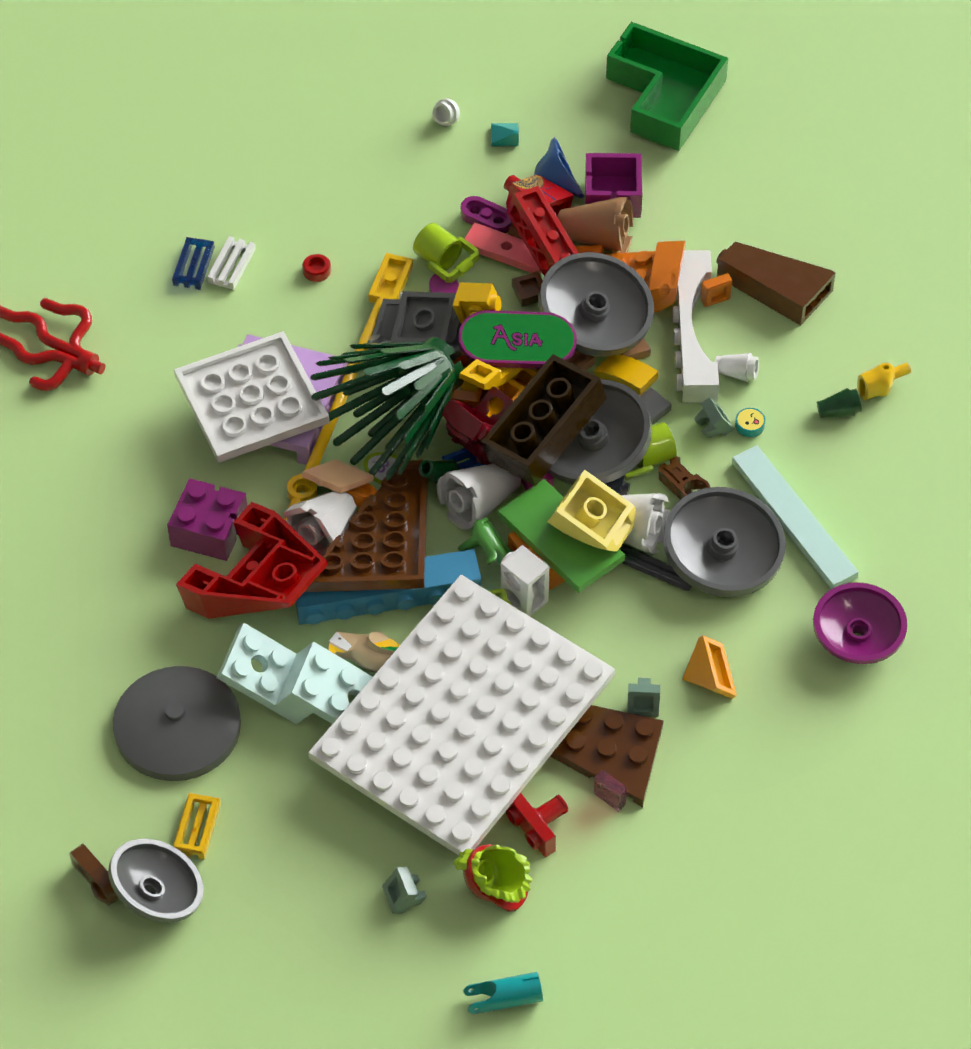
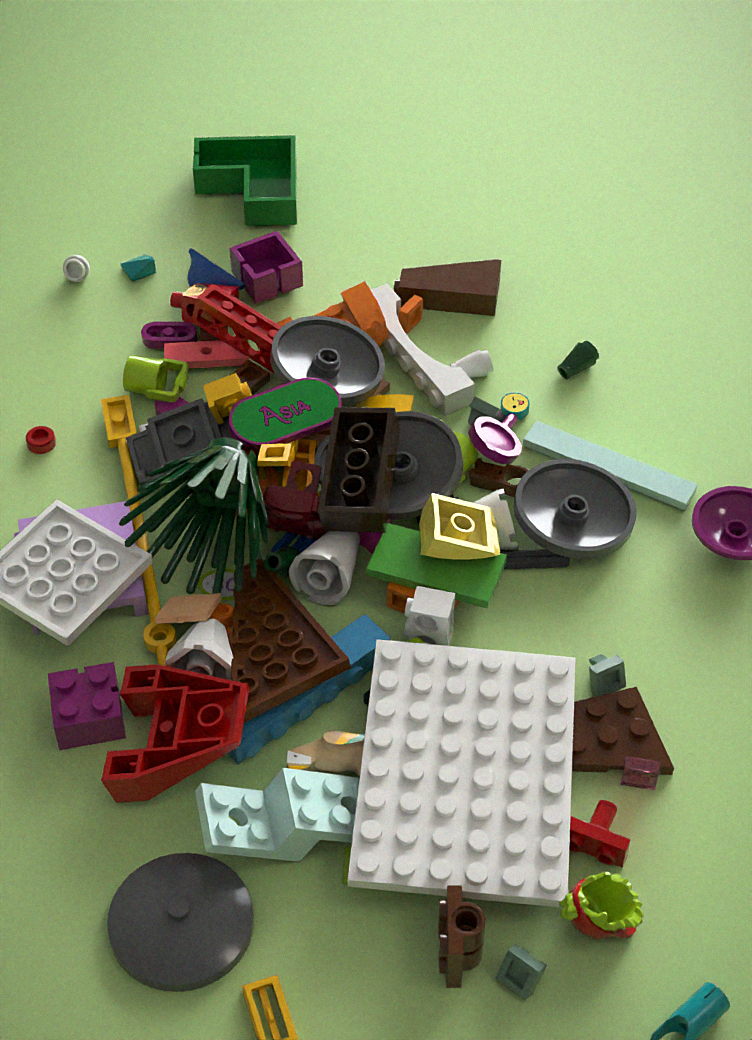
camera: 30 degrees left, 5 degrees down
(366, 841) = (460, 936): none -> reddish brown plate
(490, 540) = (374, 600): bright green piece -> none
(600, 223) = (279, 297): medium nougat cone -> none
(701, 446) = (496, 439): none -> piece
(710, 668) = (638, 624): light orange slope -> none
(880, 379) = (597, 326): yellow piece -> none

